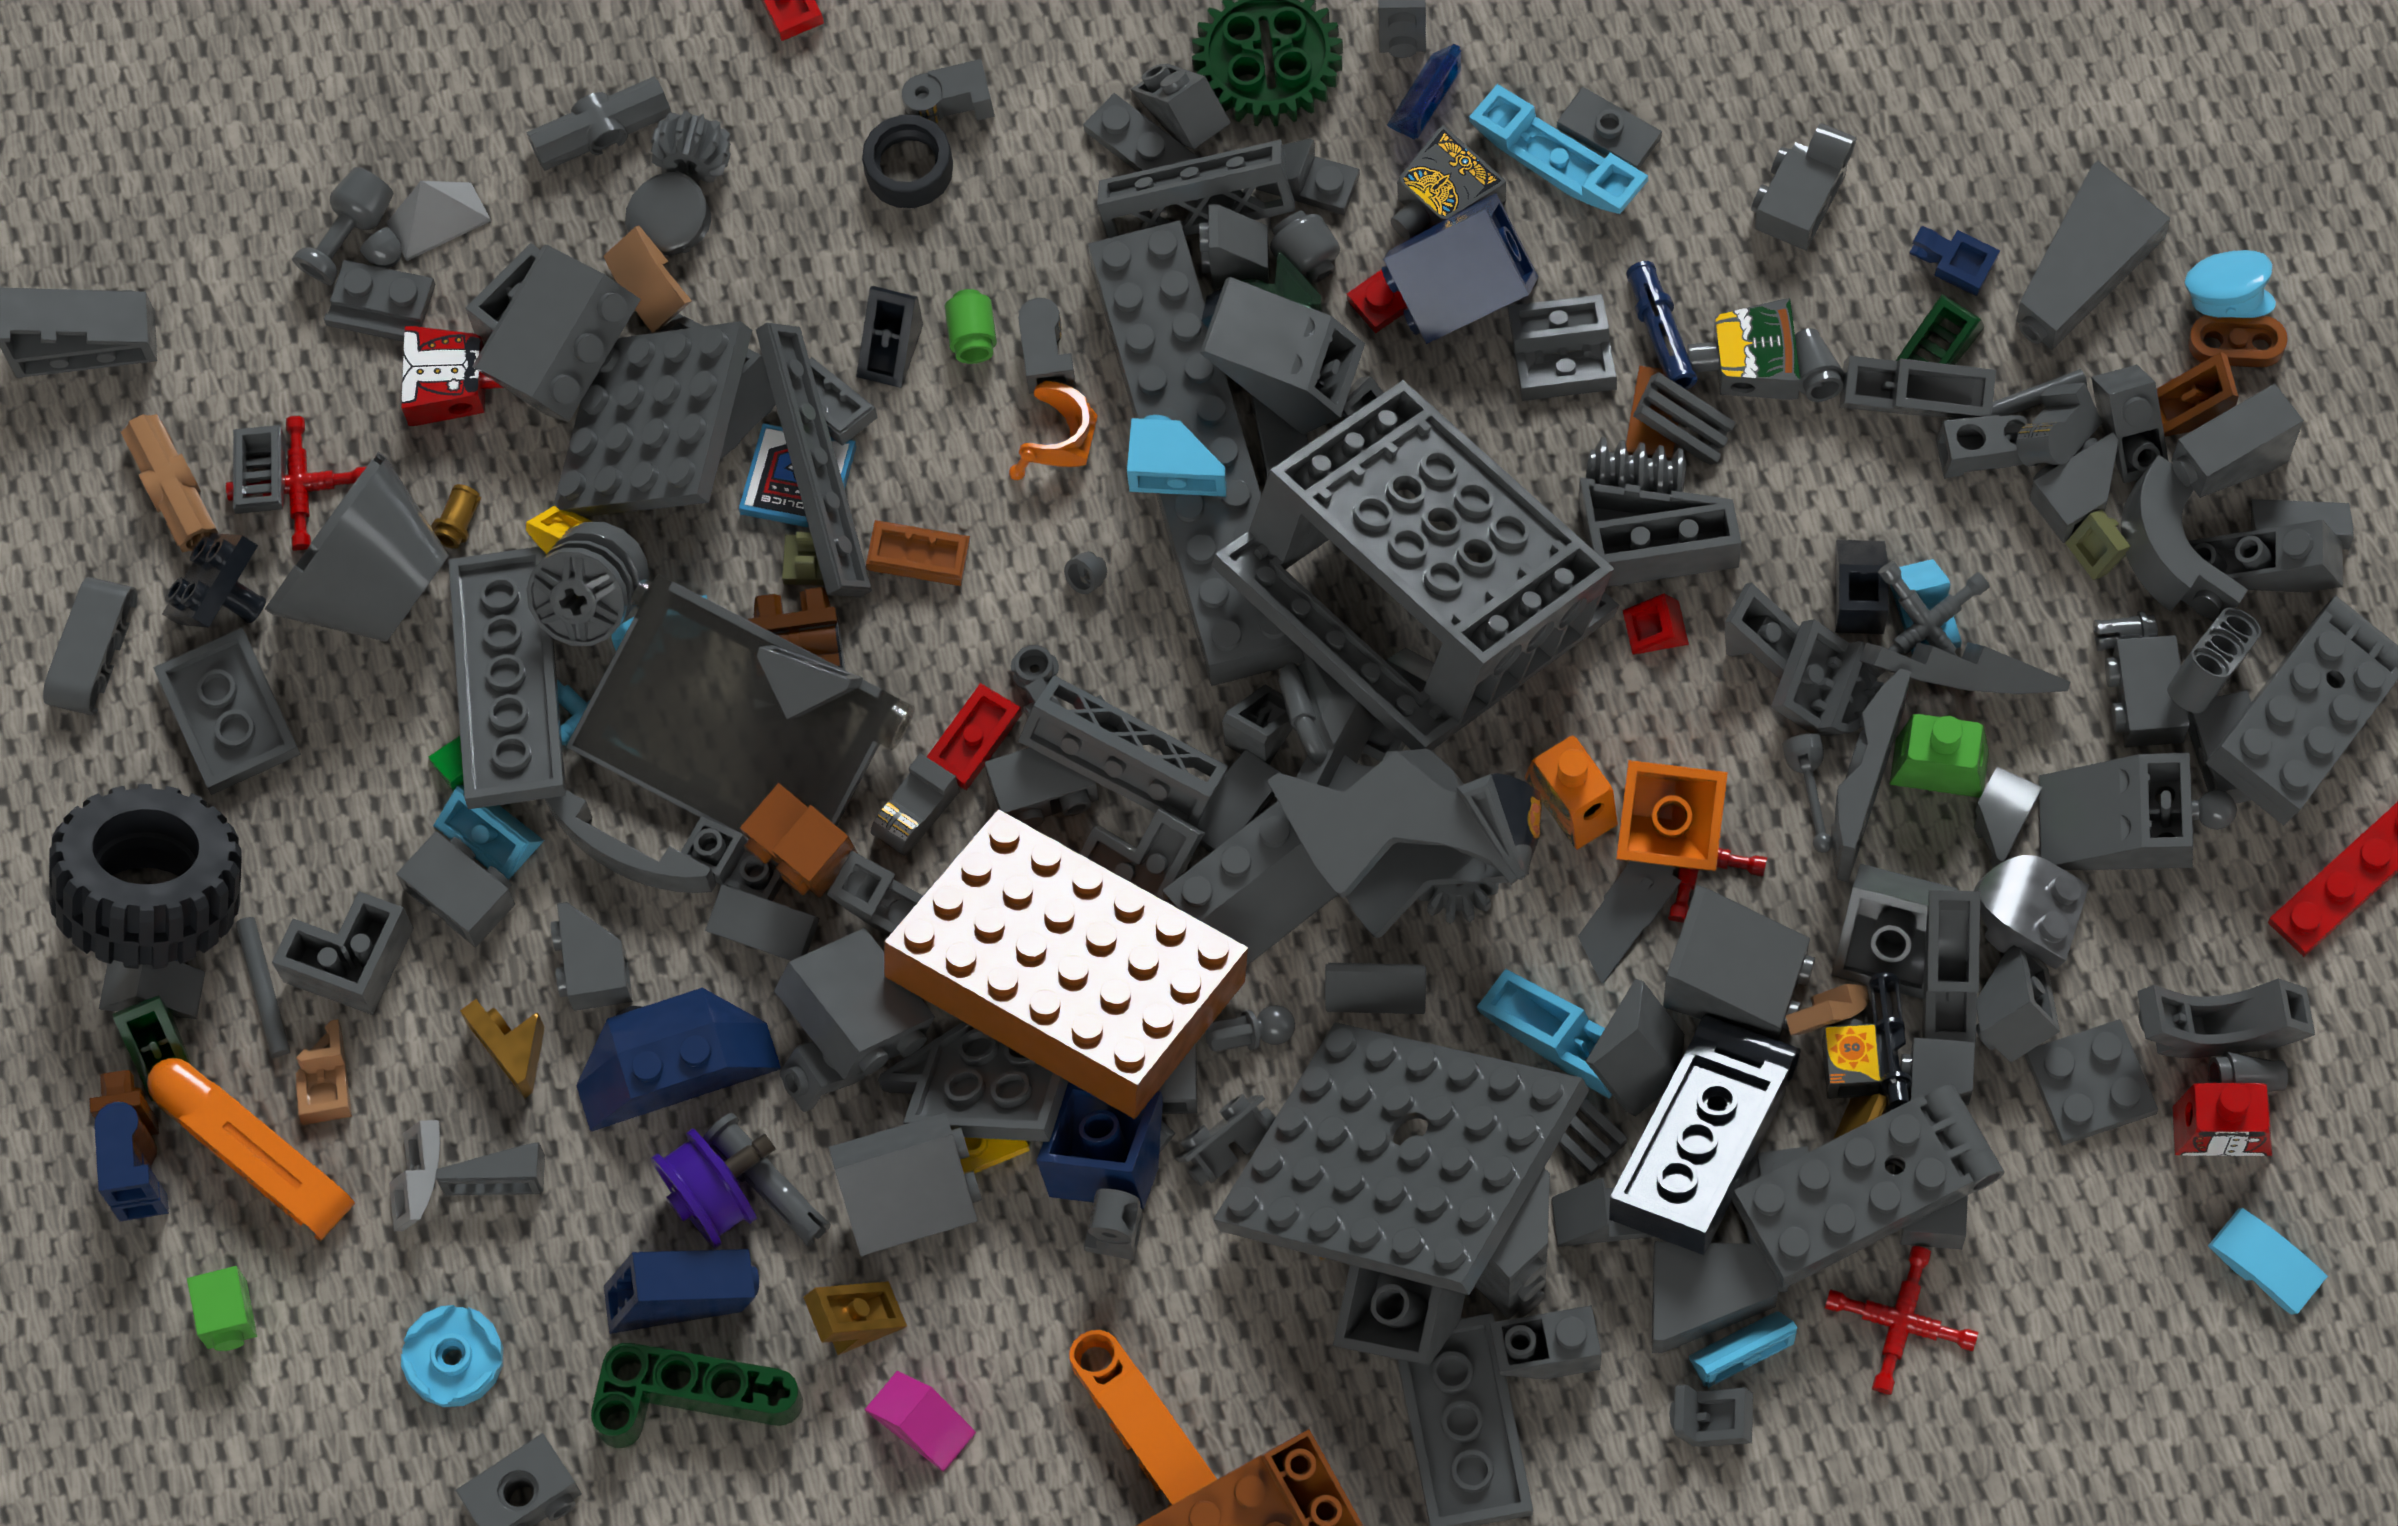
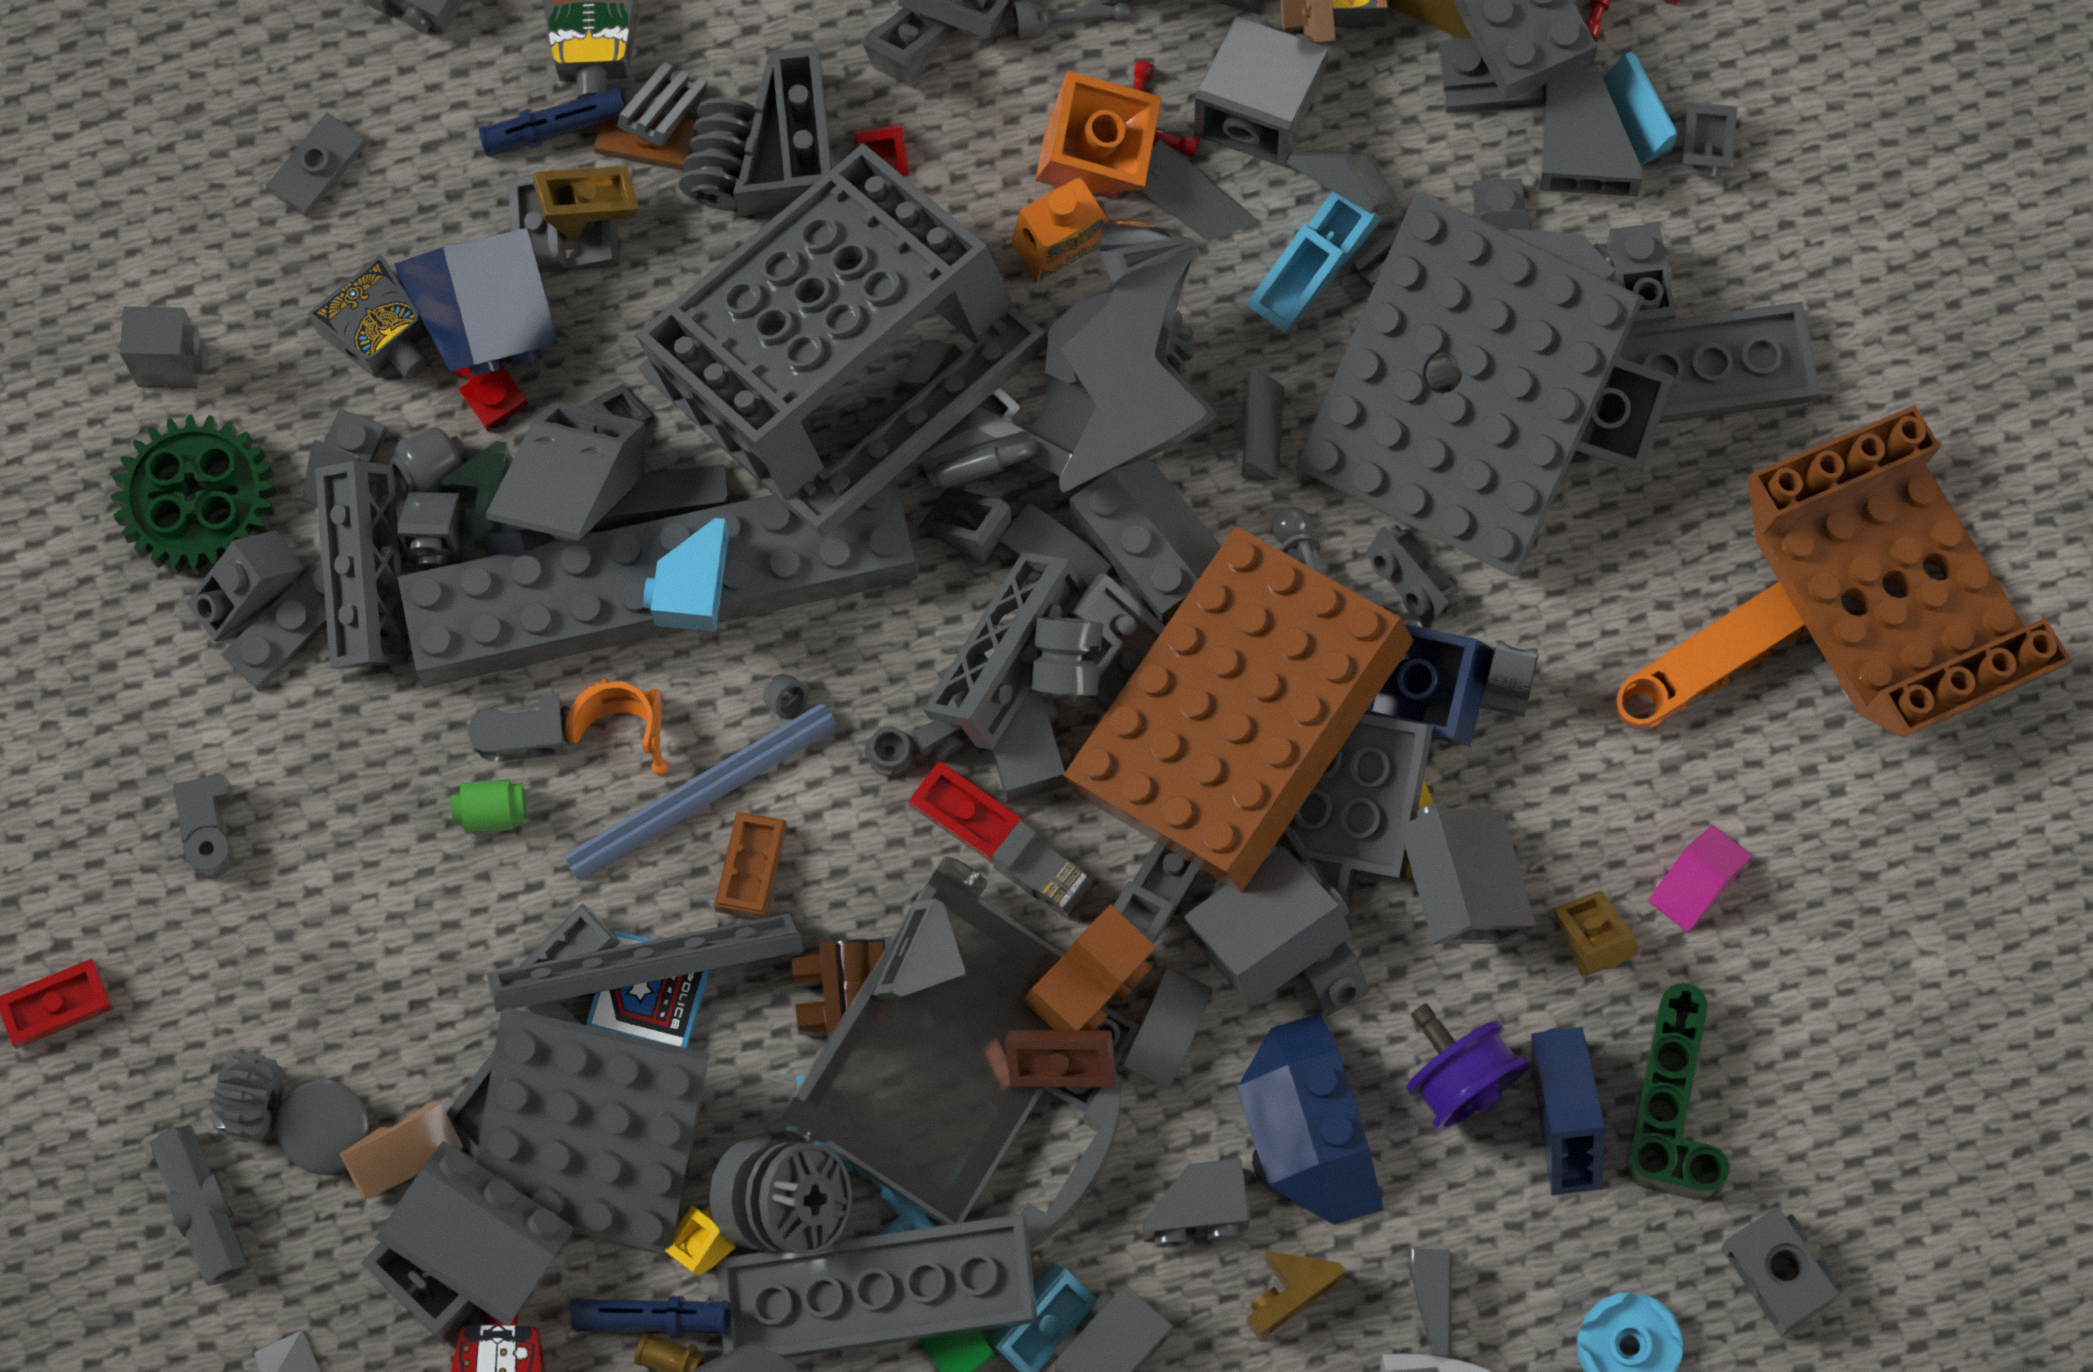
camera: 90 degrees left, 5 degrees up
(486, 537) = (668, 1317): none -> dark blue pin
(717, 817) = (1060, 1058): none -> copper plate
(726, 1140) = (1460, 1013): dark grey pin -> none
(801, 561) = (748, 985): olive tile -> none
(889, 336) = (497, 890): black slope -> none
(916, 192) = (273, 833): black tyre -> none
(992, 508) = (700, 791): none -> sand blue axle
(1107, 799) = (1067, 656): none -> dark grey wheel
(1427, 92) = (253, 338): clear blue slope -> none
(1554, 156) = (347, 212): medium azure slope -> none
(1573, 348) = (583, 196): none -> pearl gold slope
(1703, 1134) = (1458, 129): hinge -> none

